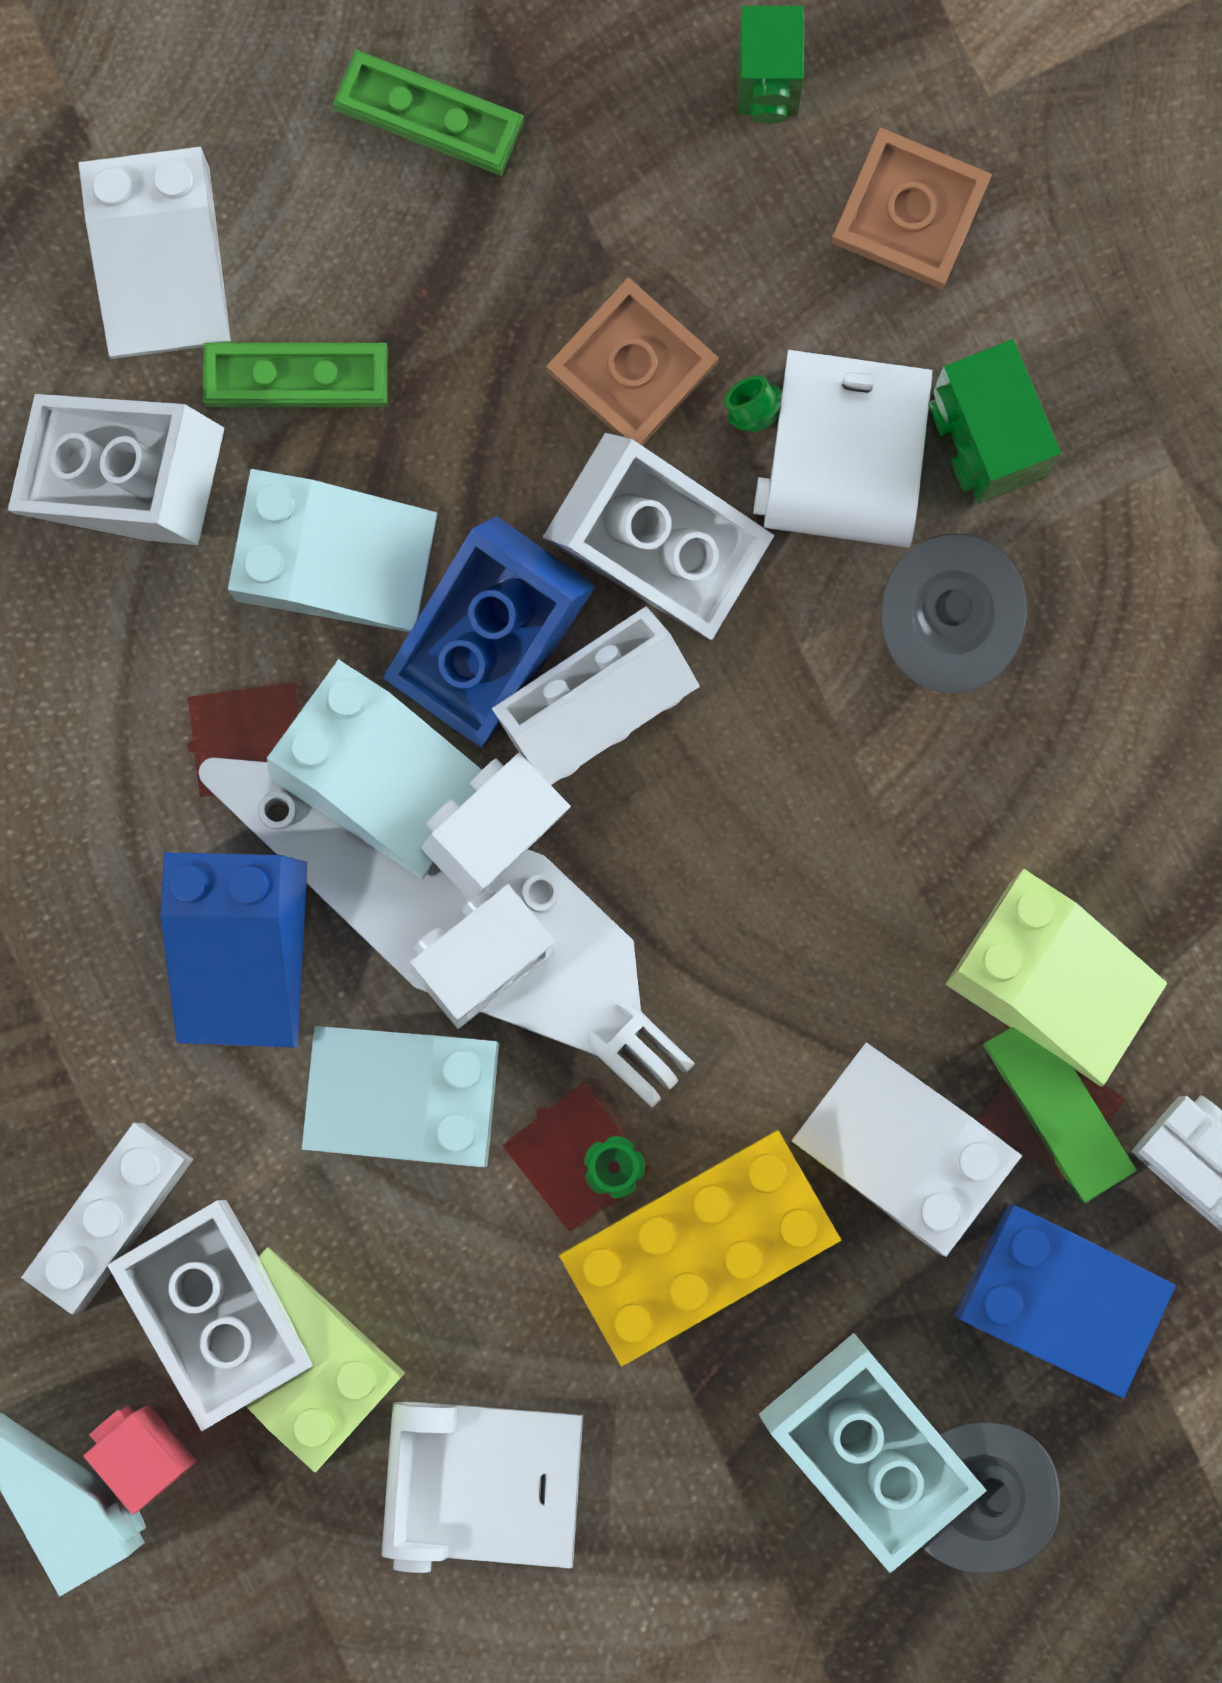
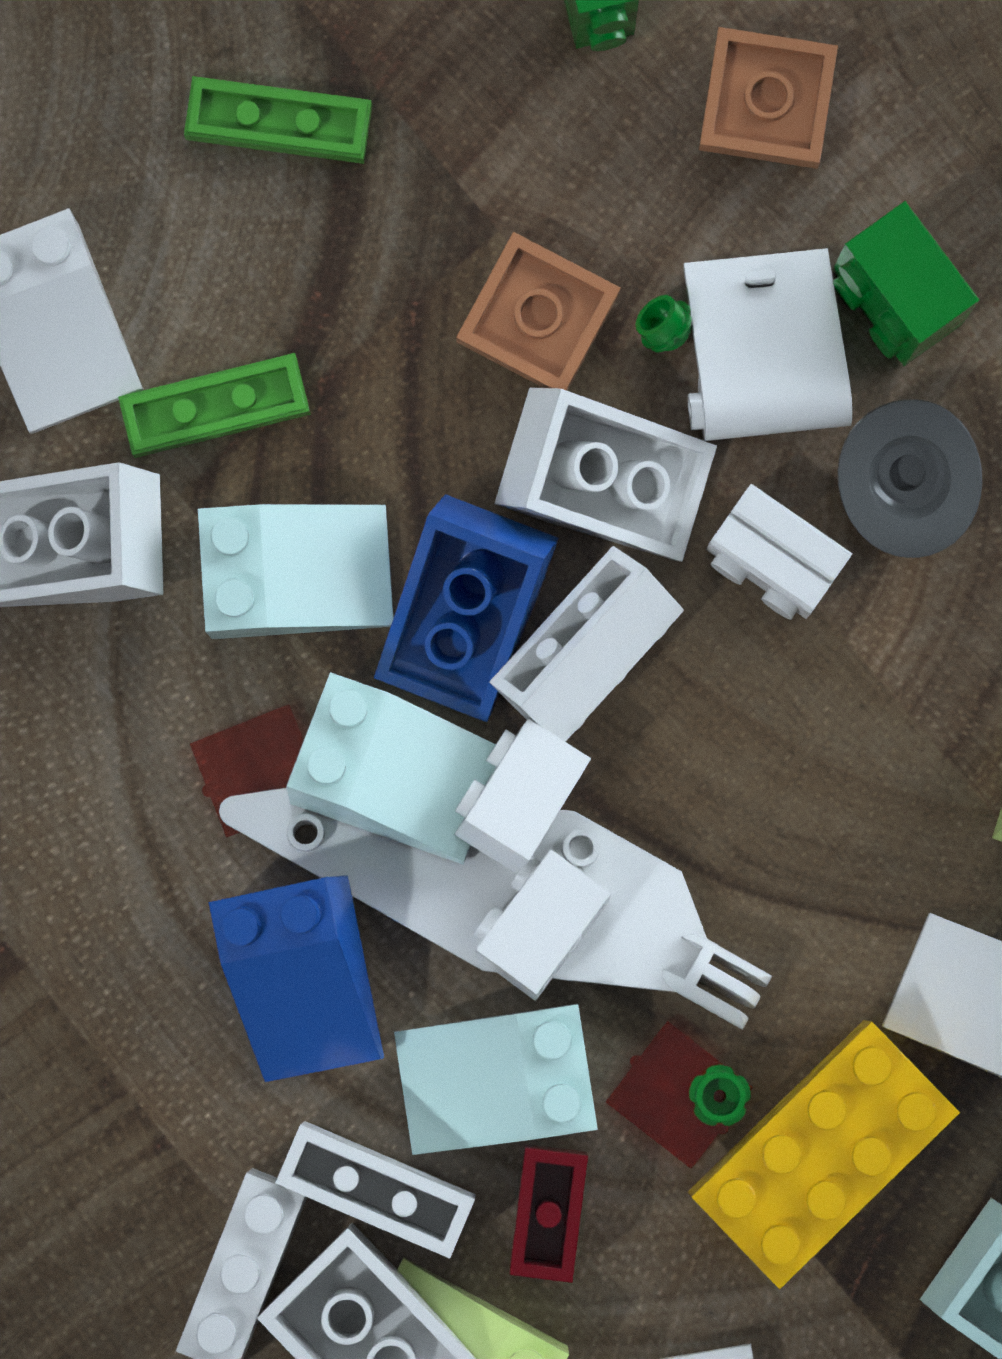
camera: 15 degrees left, 0 degrees up
(255, 1171) = (376, 1189): none -> white brick
(416, 1237) = (548, 1213): none -> dark red brick
(805, 654) = (777, 554): none -> white brick

